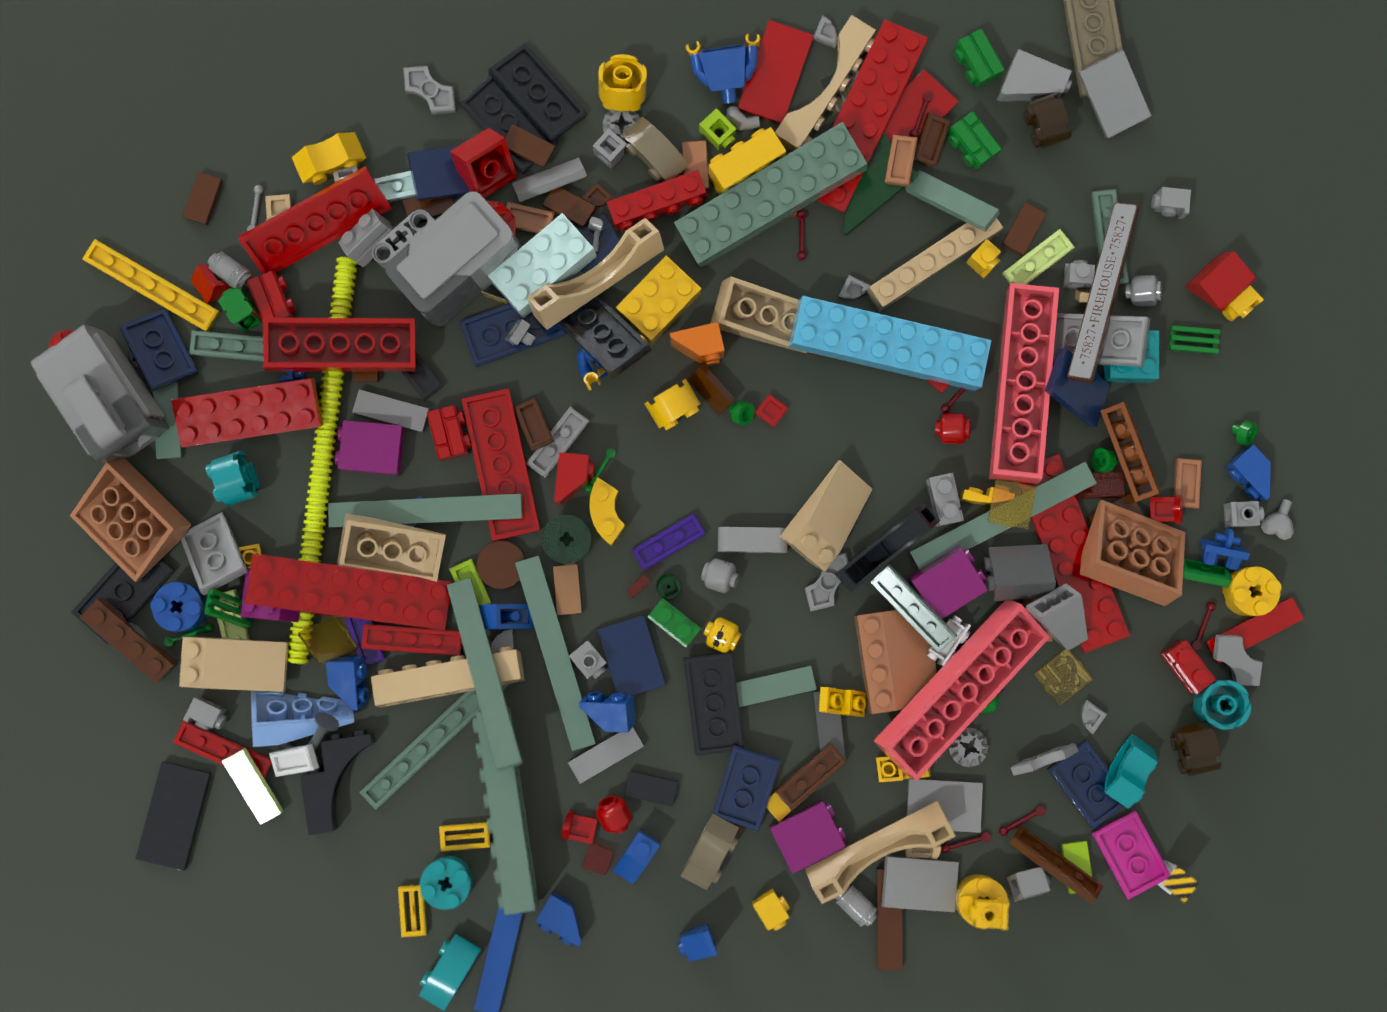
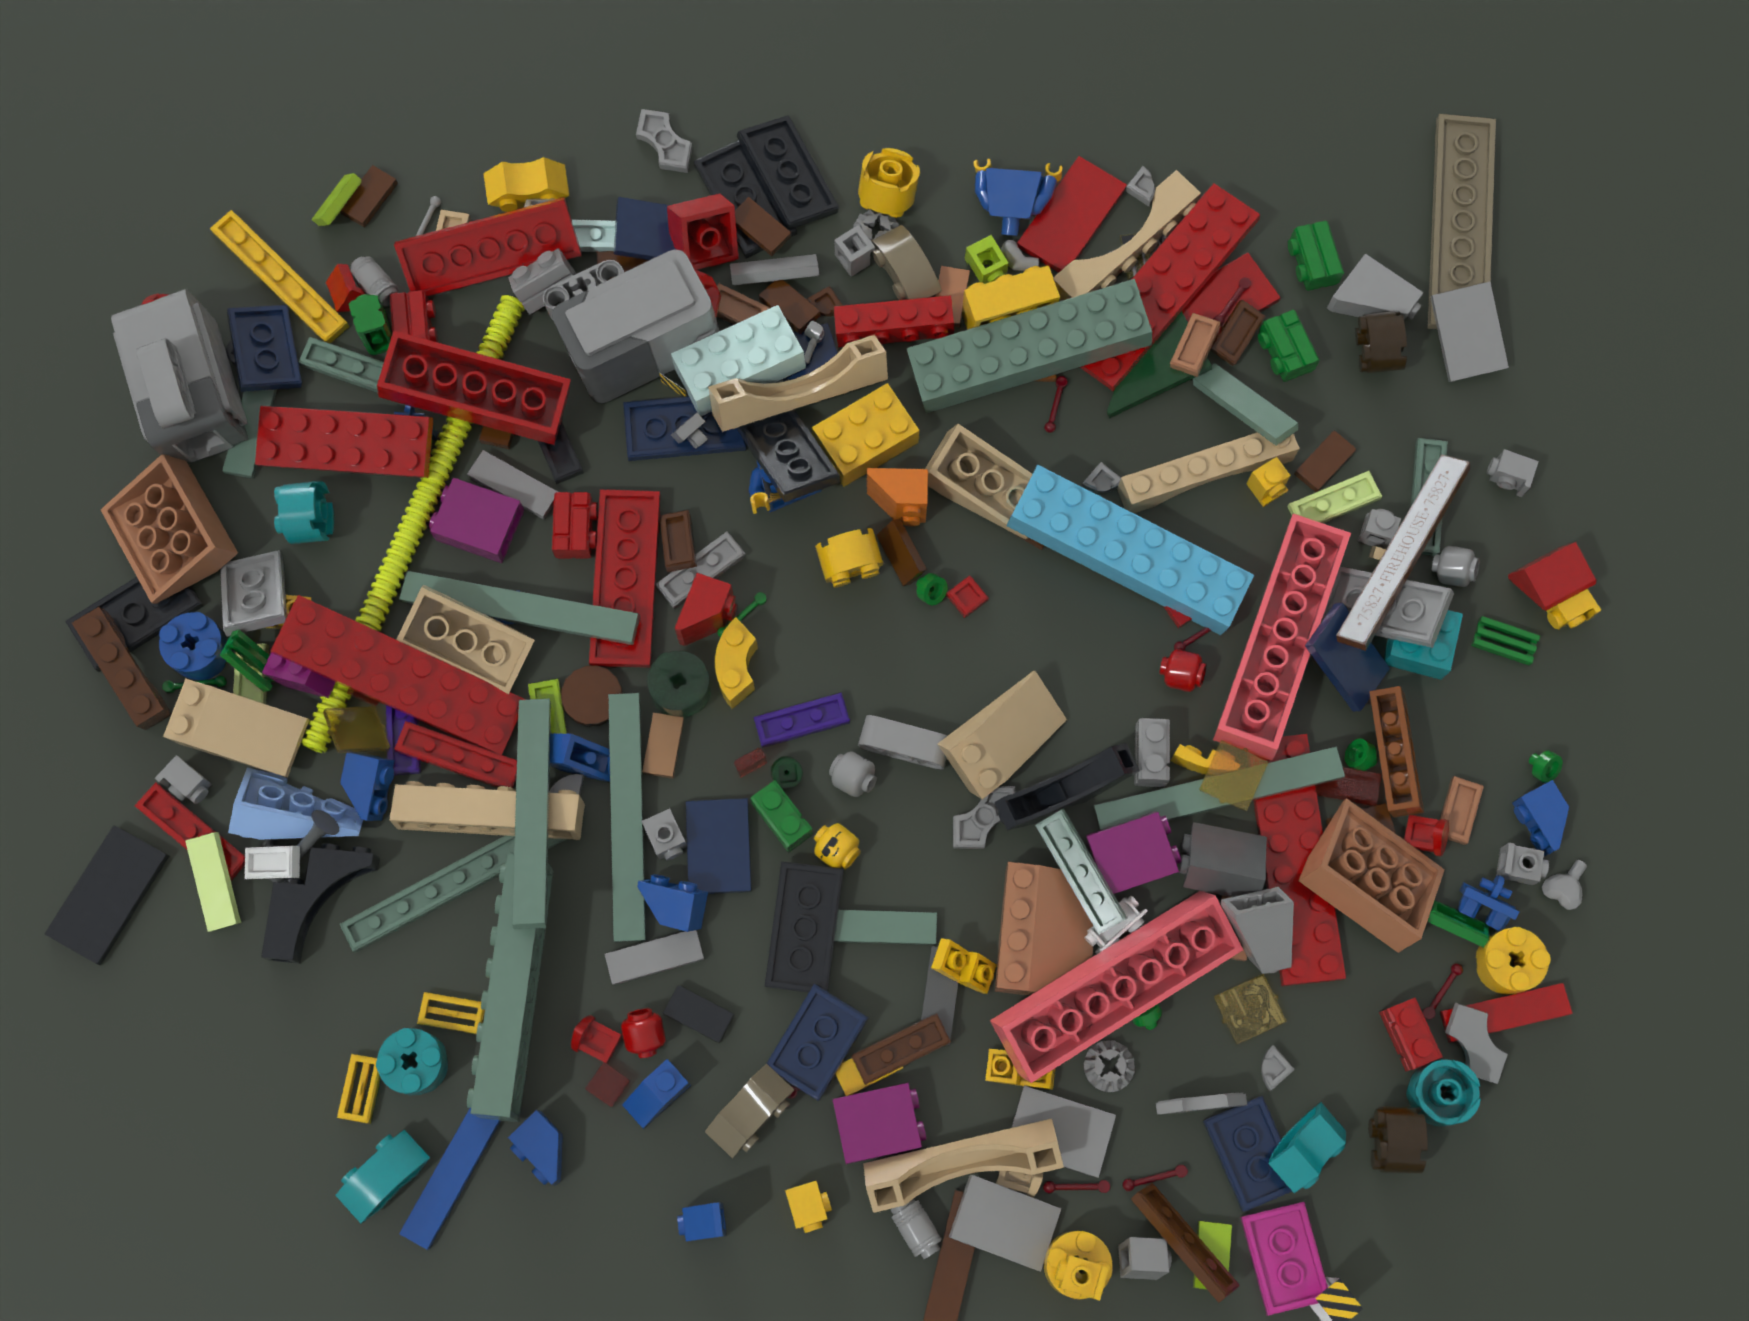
camera: 20 degrees right, 10 degrees down
(178, 209) = (337, 200): none -> lime tile

